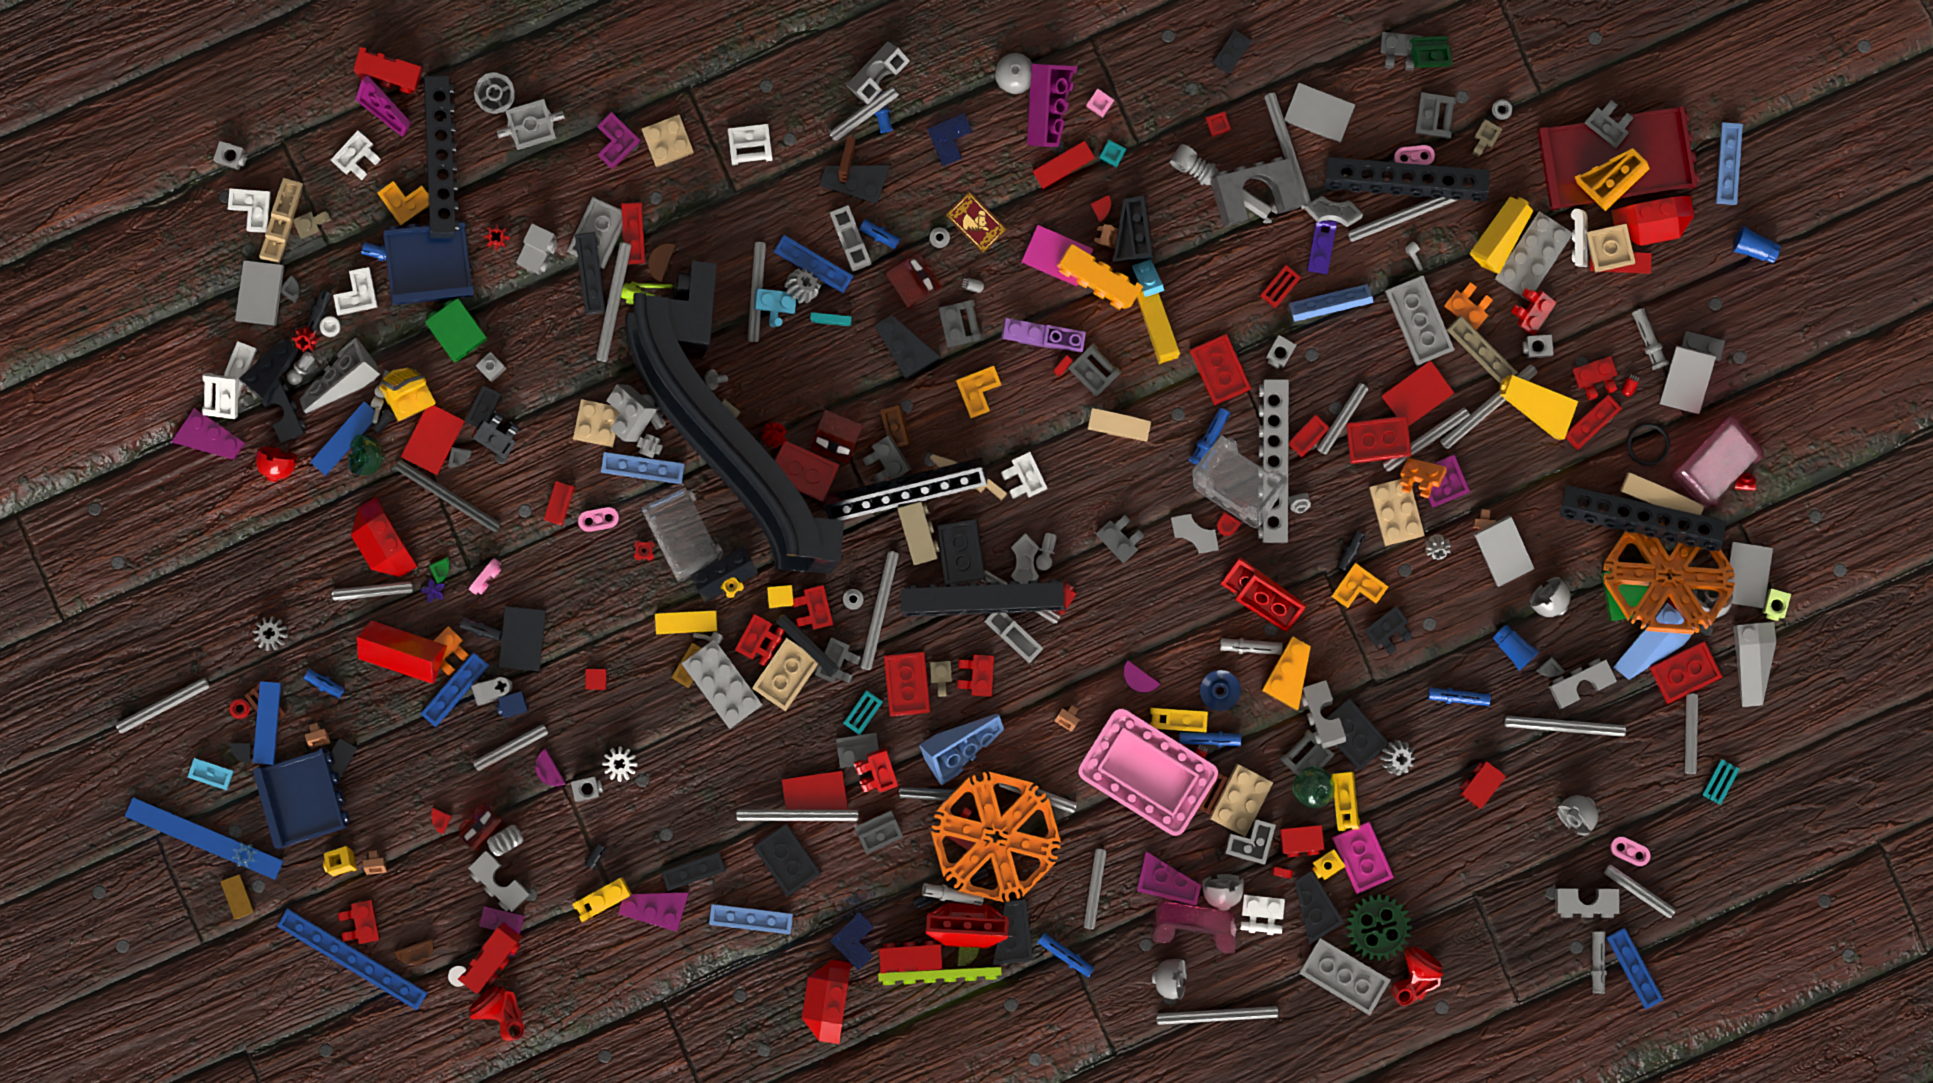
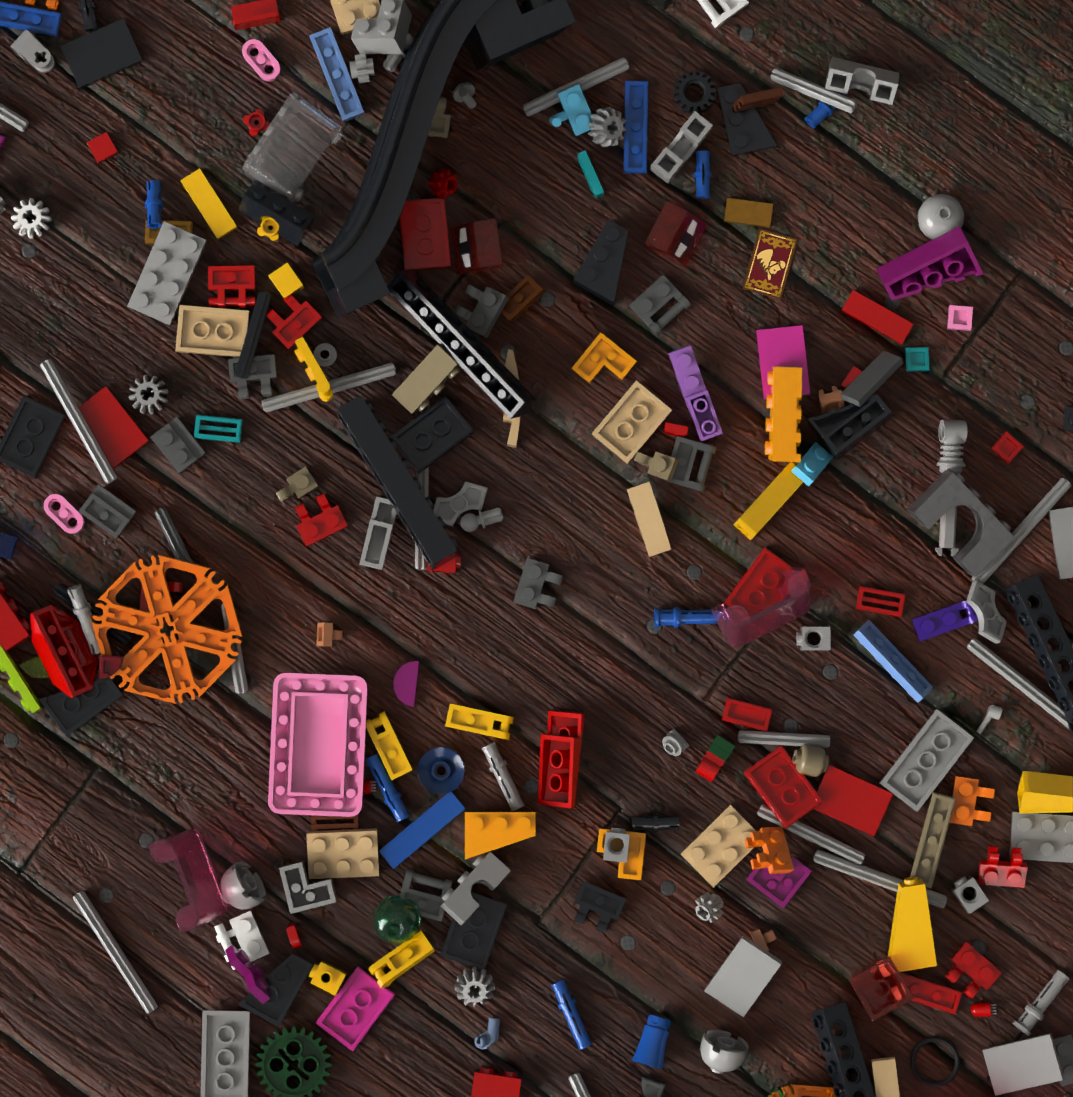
camera: 60 degrees right, 0 degrees up
(512, 705) = (30, 80): dark blue brick -> none
(663, 664) = (154, 204): none -> blue pin
(718, 638) = (211, 240): light grey hand -> none
(800, 750) = (145, 387): none -> light grey gear
(804, 195) = (690, 79): none -> black tyre
(861, 614) = (313, 371): none -> yellow plate
(861, 866) = (64, 514): none -> bright pink plate
(881, 769) = (170, 478): red plate -> none
(907, 684) = (271, 456): red tile -> none
(928, 216) = (748, 212): none -> pearl gold tile
(939, 244) = (726, 235): light grey plate -> none
(944, 136) = (838, 183): clear blue plate -> none
(953, 748) = (233, 538): medium blue wedge -> none
(973, 285) = (705, 296): light grey piece -> none
(998, 895) = (109, 665): none -> dark red tile
(1028, 474) = (547, 458): white plate -> none
(1037, 395) = (631, 422): none -> tan plate
(1046, 940) = (87, 795): blue pin -> none
(1083, 393) = (659, 466): none -> dark tan plate
(1095, 887) = (172, 758): light grey axle -> none
(1109, 196) = (871, 378): none -> dark grey tile
(1166, 882) = (219, 825): magenta wing -> none
(1170, 978) = (124, 883): light grey cylinder -> none
(1186, 528) = (584, 646): light grey tile -> none
(1198, 641) = (478, 721): none -> yellow plate
(1227, 524) = (611, 684): red tile -> none
(1237, 482) = (658, 669): clear windscreen -> none
(1242, 401) = (742, 628): none -> clear pink windscreen
(1256, 730) = (422, 829): none -> blue tile
(1280, 389) = (776, 659): light grey brick -> none
(1293, 919) = (251, 972): none -> magenta plate
(1302, 840) = (337, 937): red brick -> none
(1327, 478) = (714, 758): none -> leg
(1355, 599) = (619, 856): none -> light grey brick
(1370, 407) = (810, 760): none -> dark tan head
(1441, 767) = (490, 1036): none -> sand blue arm
(1570, 452) = (880, 988): none -> clear red slope

